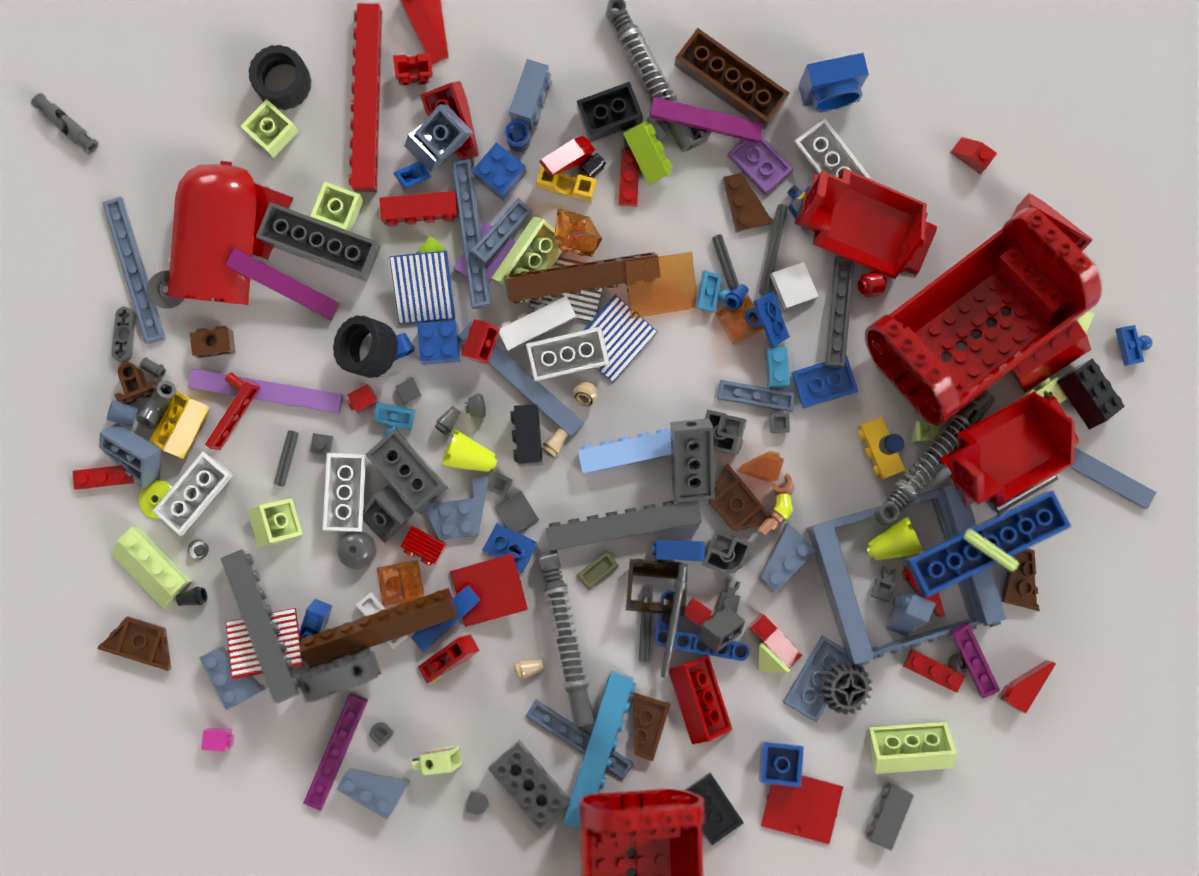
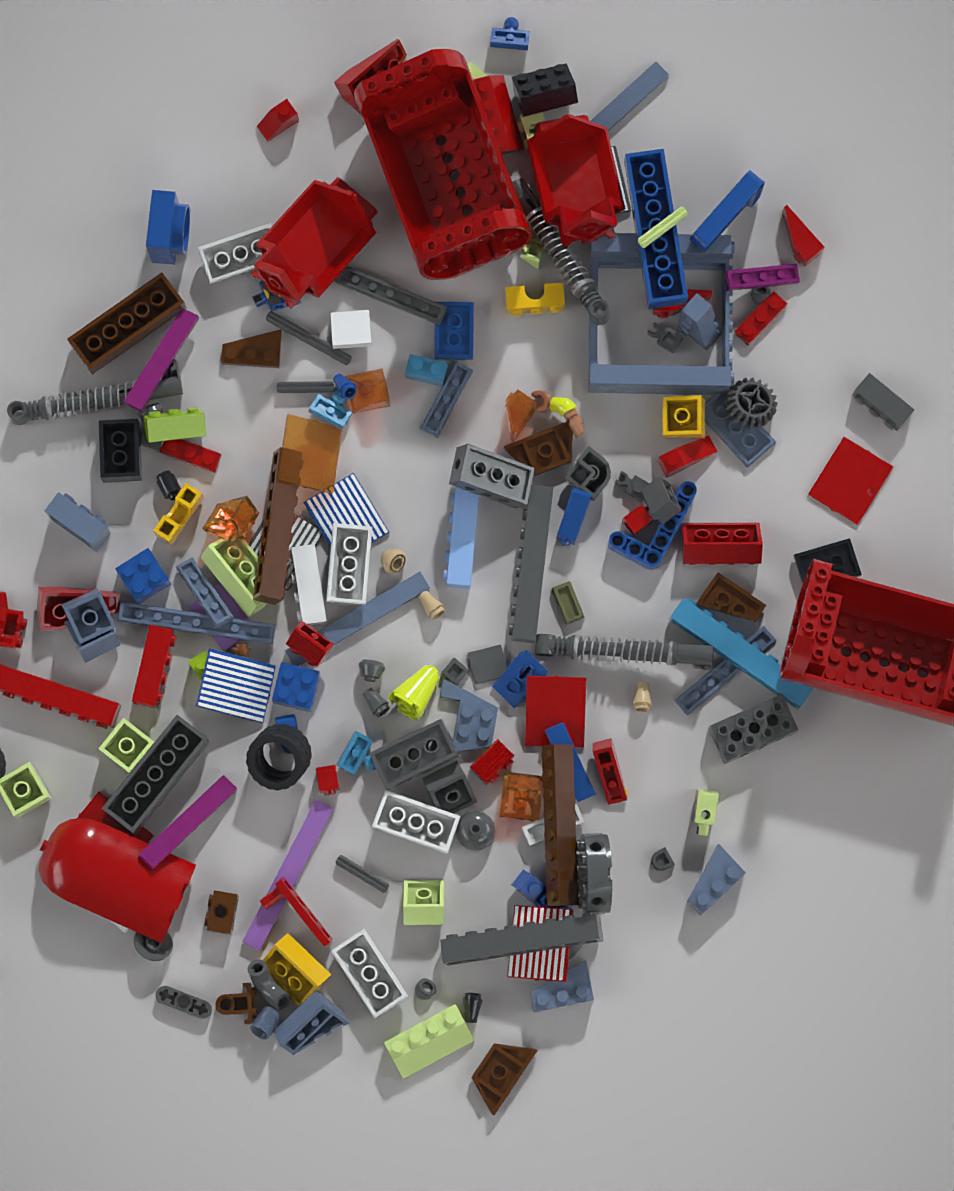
camera: 75 degrees left, 5 degrees down
(101, 477) = (322, 1065): red plate -> none
(133, 269) = (120, 973): sand blue tile -> none
(157, 370) = (228, 981): dark grey pin -> none
(157, 488) = (357, 1026): neon yellow dish -> none
(217, 739) = (620, 1020): dark pink brick -> none
(321, 444) = (359, 835): dark grey plate -> none
(335, 751) = (666, 909): magenta tile -> none
(408, 390) = (333, 733): dark grey tile -> none
(412, 175) = (118, 663): blue slope -> none
(459, 281) = (241, 649): none -> dark orange plate
(477, 803) = (757, 786): dark grey tile -> none
(517, 136) = (114, 547): blue wheel -> none
(527, 435) = (416, 627): black brick -> none
(568, 156) = (153, 502): slope -> none
(645, 627) = (633, 572): dark grey axle -> none
(653, 569) = (587, 540): dark brown window -> none
(680, 585) = (607, 522): dark grey bar -> none
(726, 432) = (473, 433): dark grey brick -> none
(760, 164) = (219, 323): medium lavender tile -> none
(768, 314) = (374, 361): blue piece -> none
(769, 661) = (704, 467): yellowish green slope -> none
(779, 422) = (480, 385): dark grey plate -> none
(781, 763) = (804, 485): blue brick -> none
(786, 558) = (612, 420): sand blue wedge -> none
(810, 626) = (683, 417): none -> yellow brick
(872, 284) = (374, 256): red head -> none
(894, 443) = (533, 285): blue piece -> none
(895, 542) = (628, 313): neon yellow cone -> none
(911, 747) = (825, 361): yellowish green slope -> none
(1020, 583) = (697, 207): reddish brown wing -> none
(1049, 617) = (744, 194): none -> blue beam

